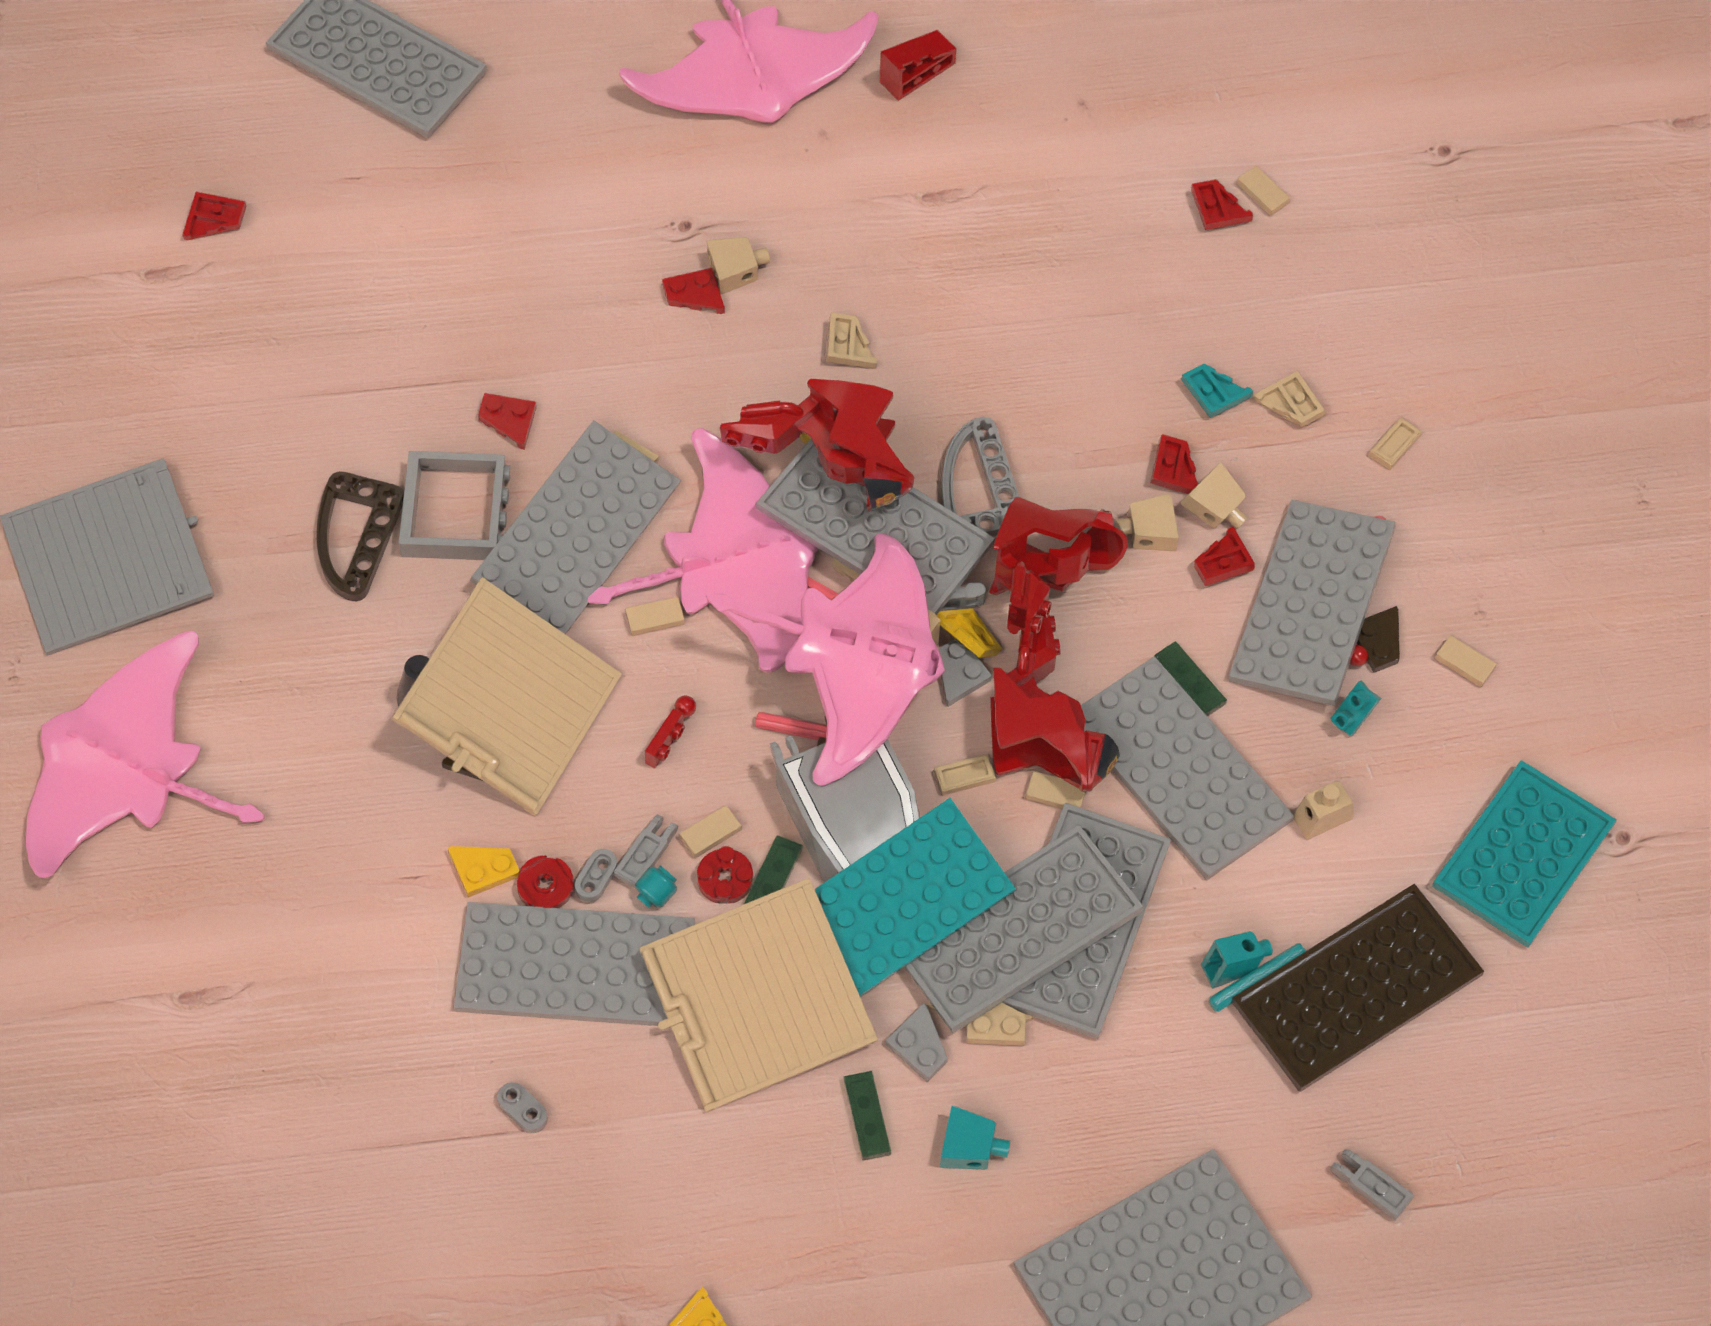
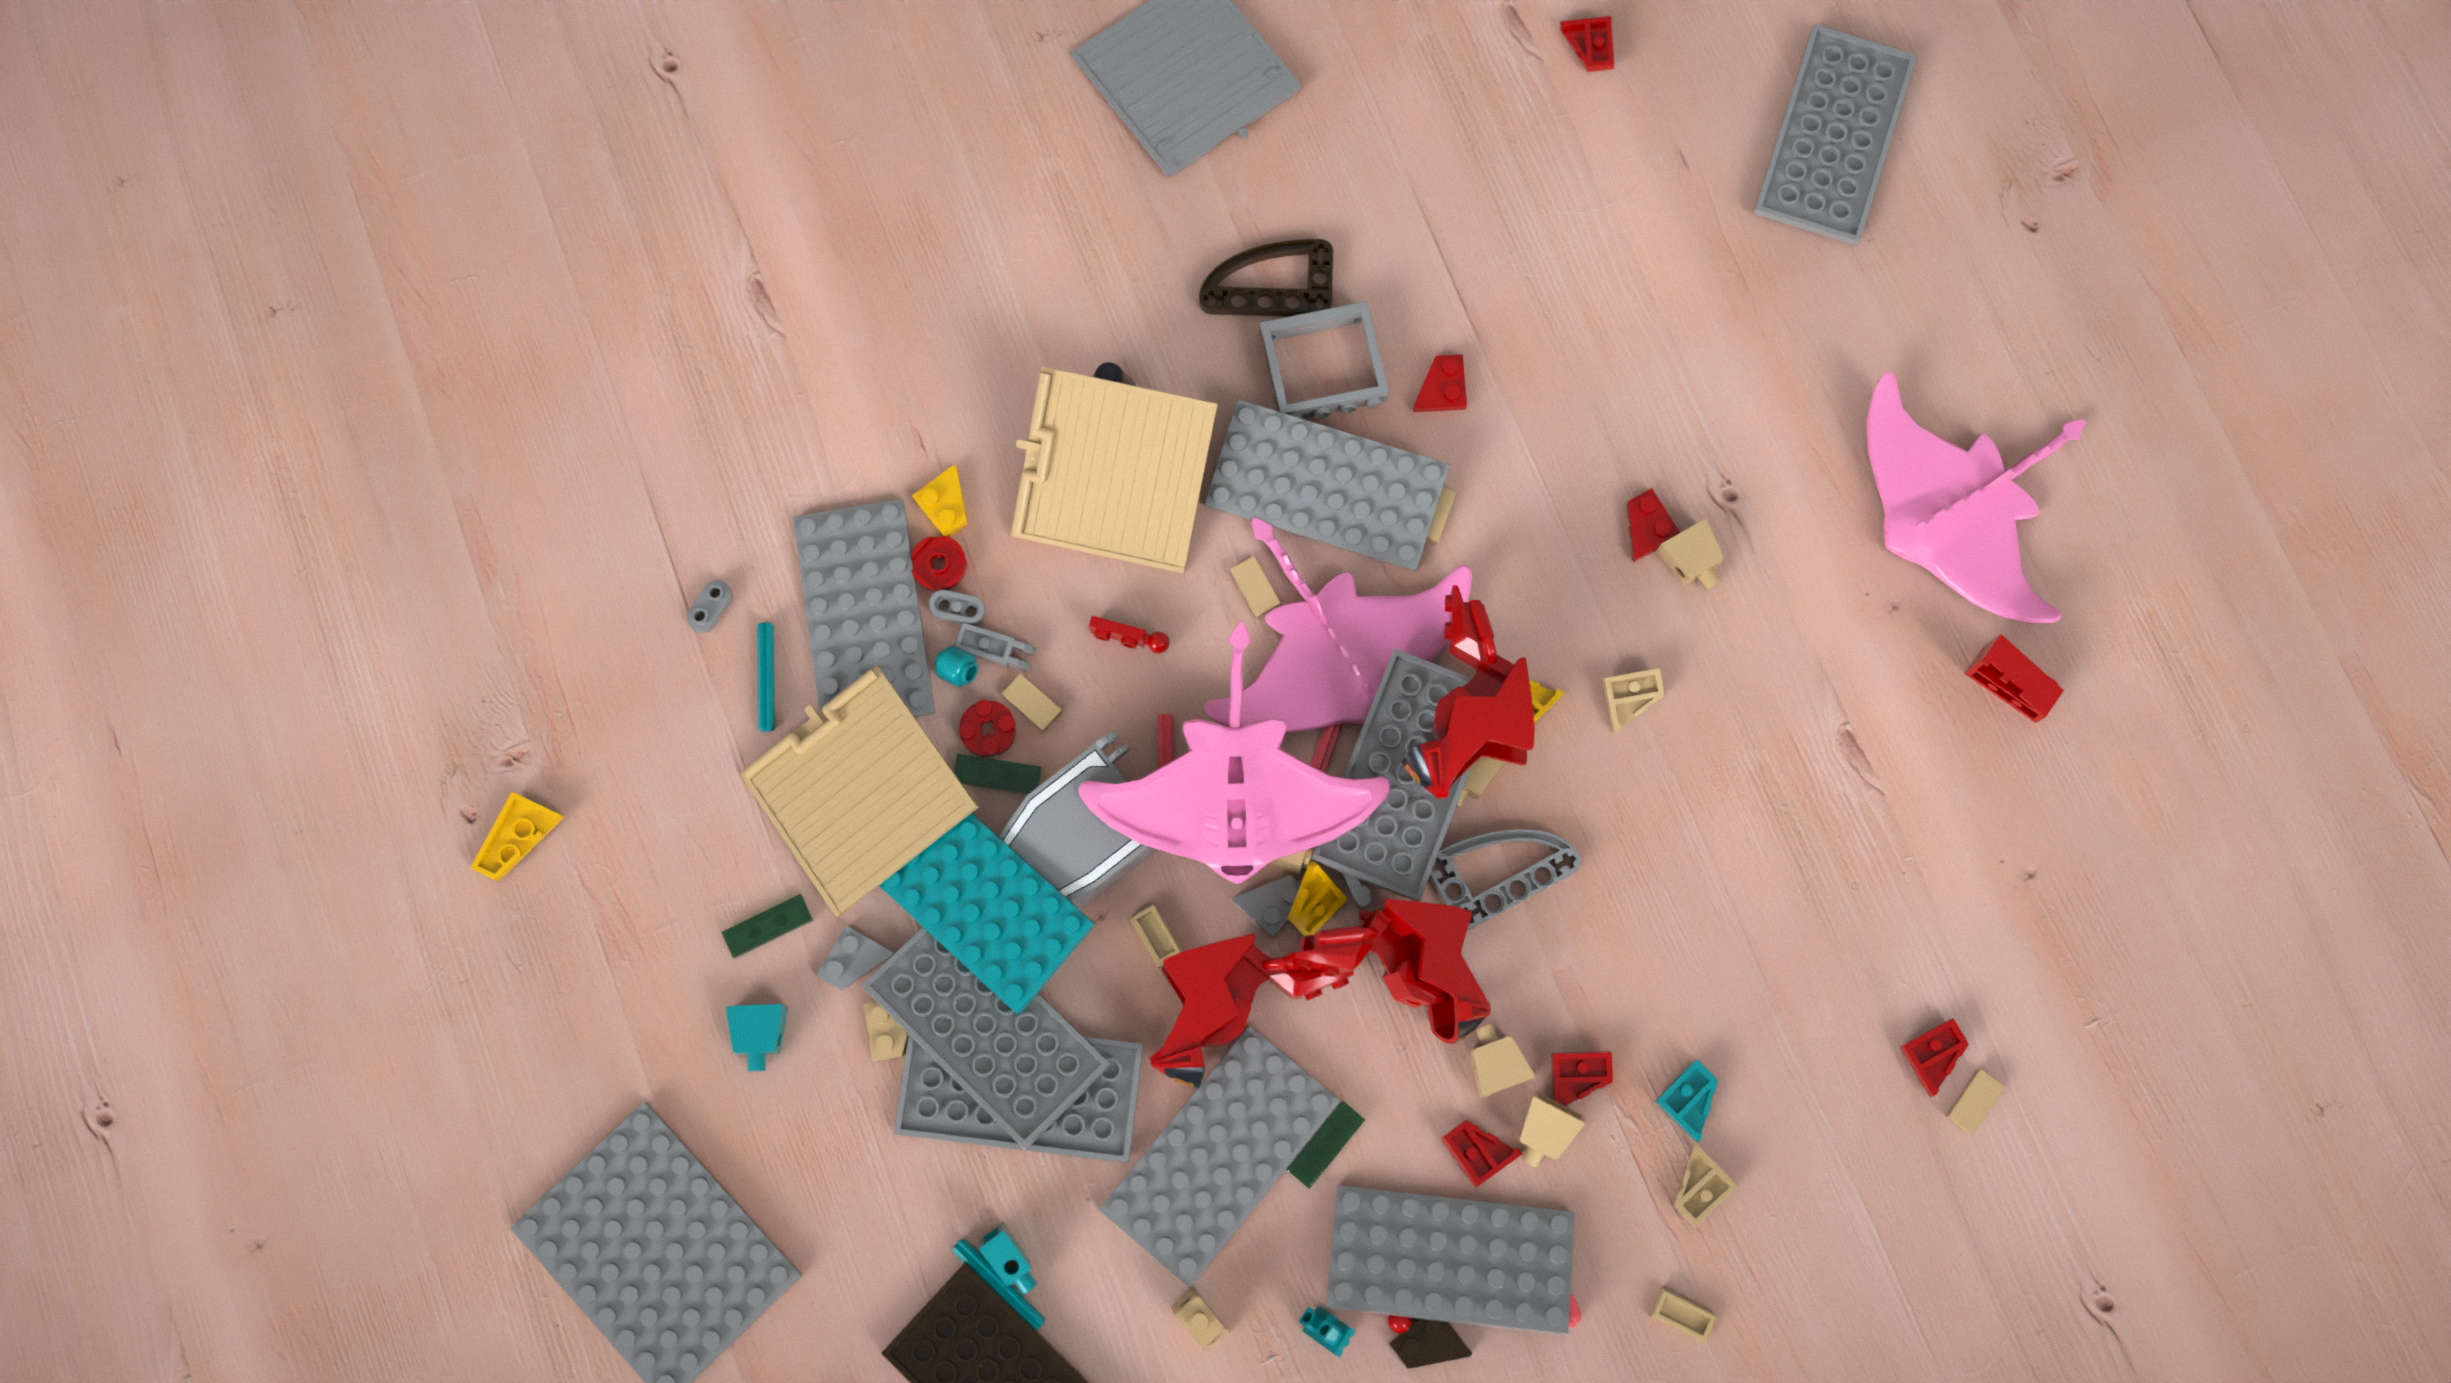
camera: 80 degrees right, 15 degrees up
(116, 758) = (970, 146): bright pink animal -> none
(612, 1067) = (765, 671): none -> teal axle
(1053, 791) = (1157, 1027): tan tile -> none

